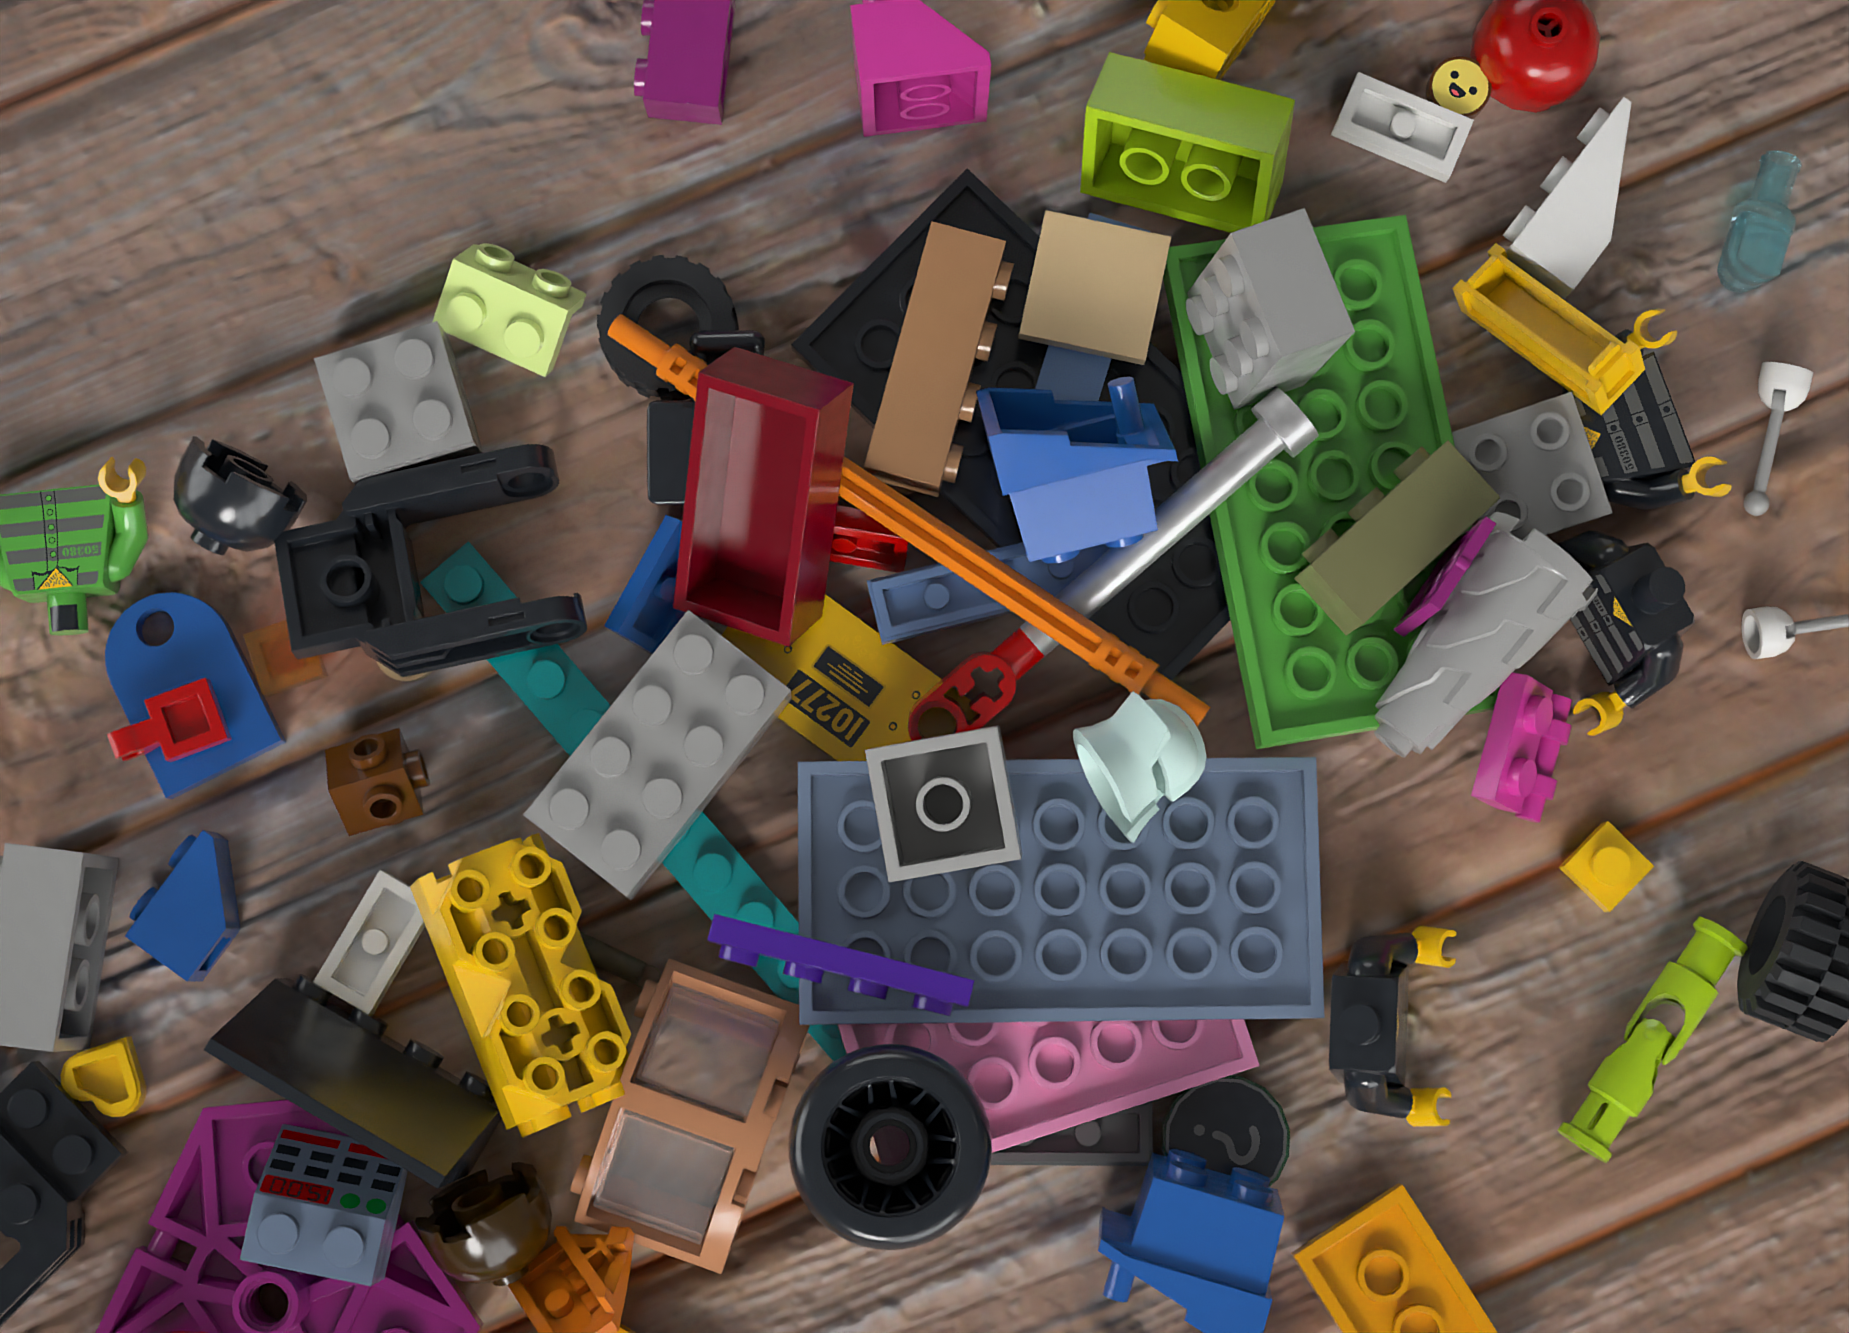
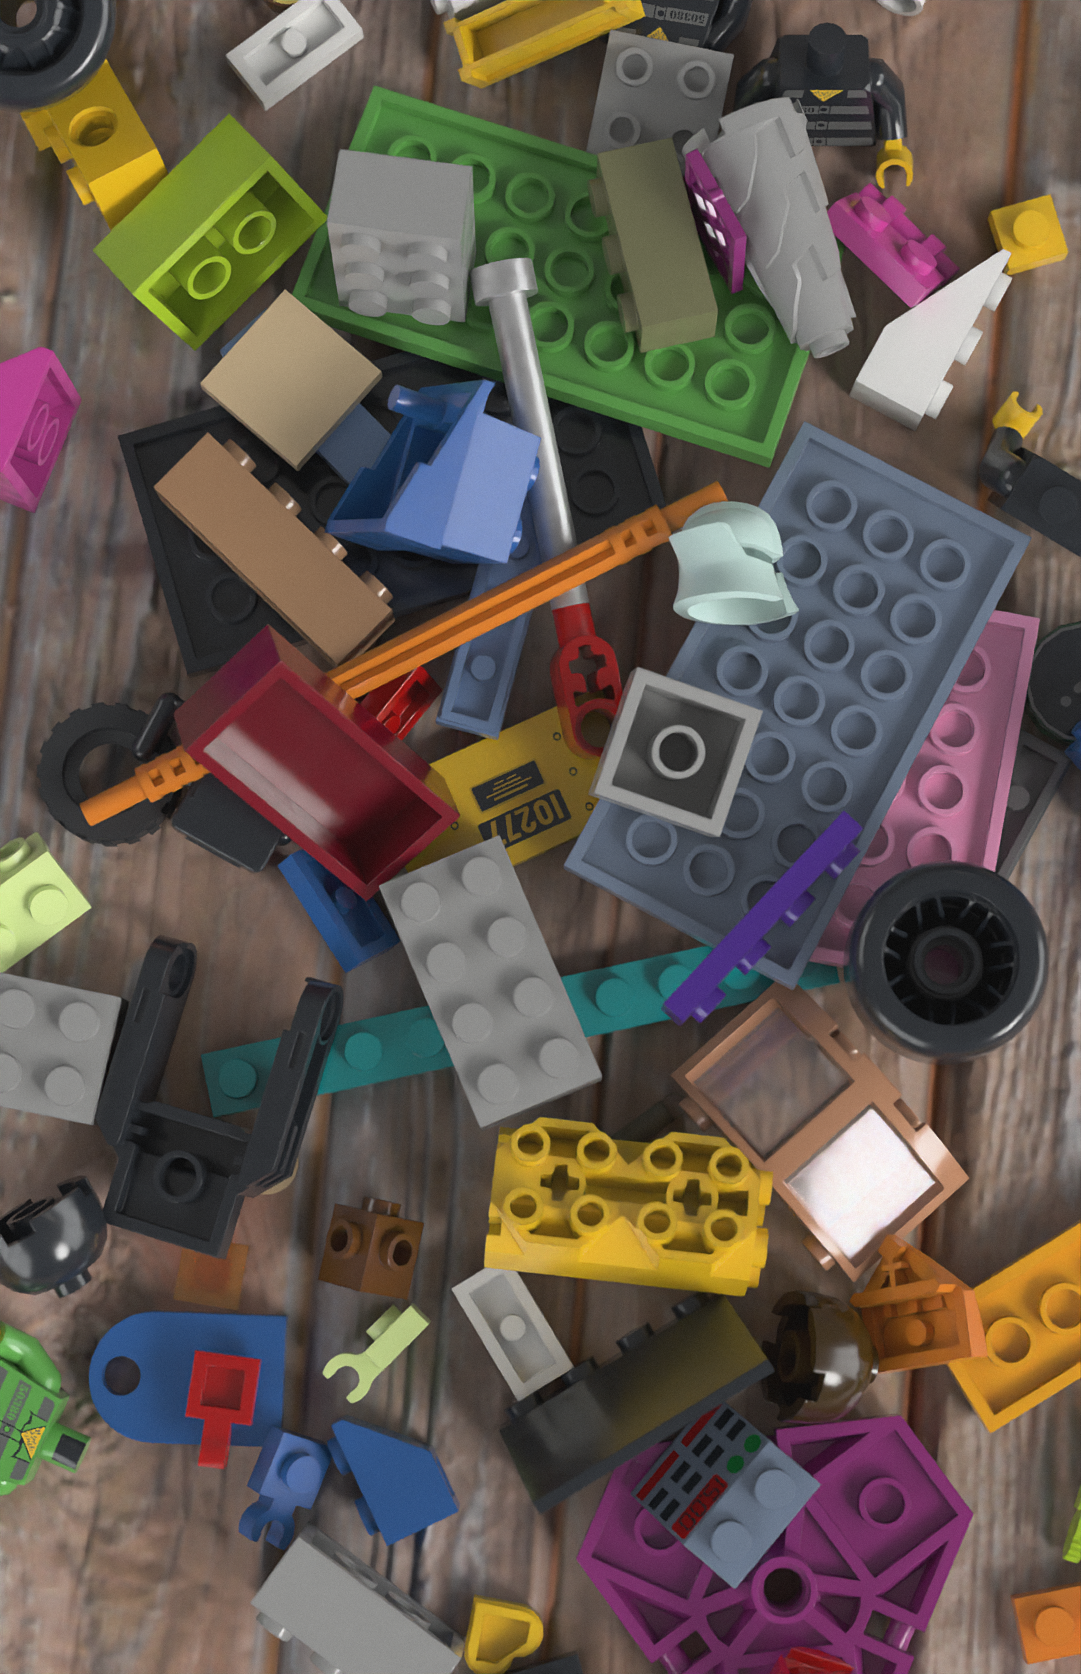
camera: 60 degrees left, 0 degrees up
(141, 814) = (284, 1476): none -> blue plate
(312, 840) = (390, 1336): none -> yellowish green plate
(1442, 824) = (917, 348): none -> white slope

